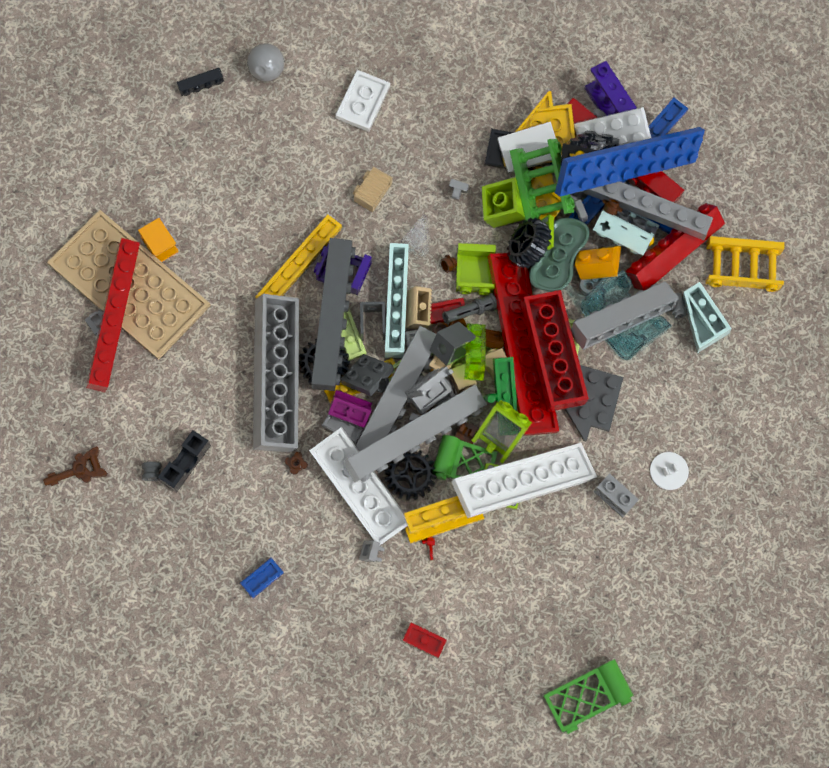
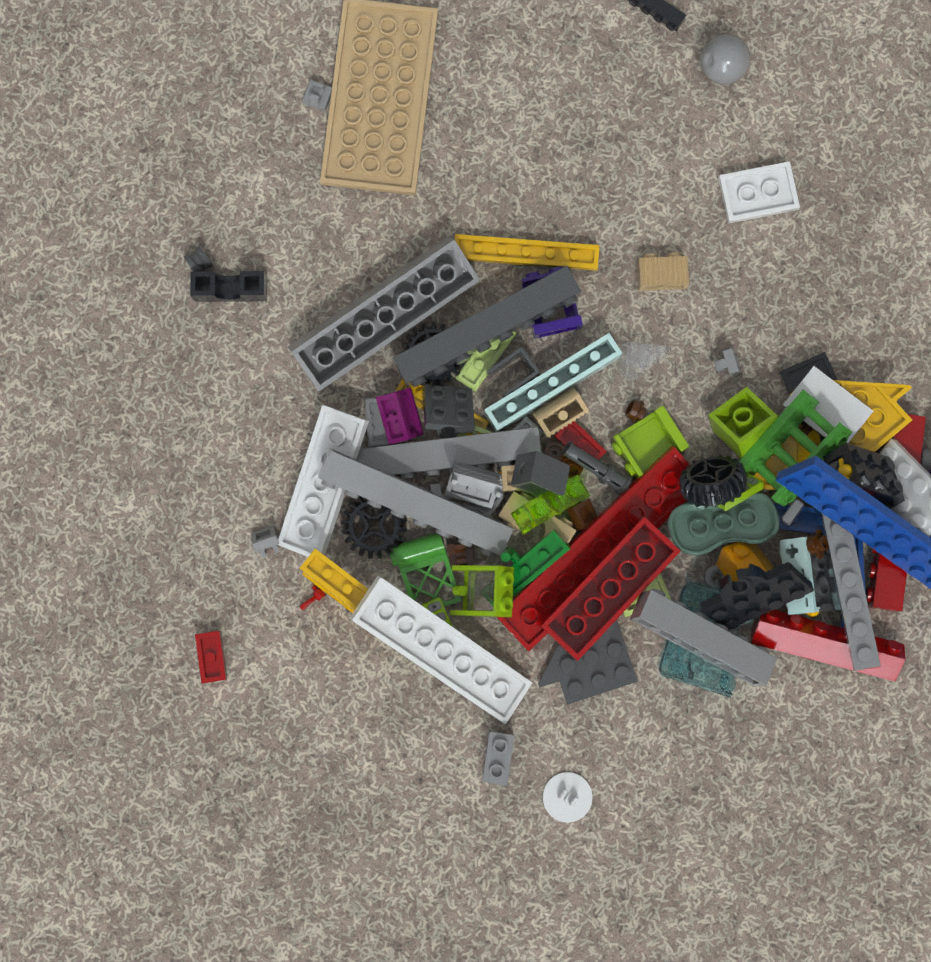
camera: 60 degrees right, 10 degrees up
(79, 469) = (154, 188): reddish brown piece -> none
(113, 315) = (330, 103): red brick -> none
(158, 240) = (446, 91): light orange piece -> none
(262, 578) = (165, 448): blue plate -> none
(296, 458) = (309, 407): reddish brown plate -> none
(614, 687) = (291, 886): bright green piece -> none
(619, 263) = (755, 594): none -> black plate
(679, 310) = (758, 693): light grey pin -> none
(704, 317) = (765, 728): light aqua wedge -> none
(753, 248) = (876, 710): yellow fence -> none

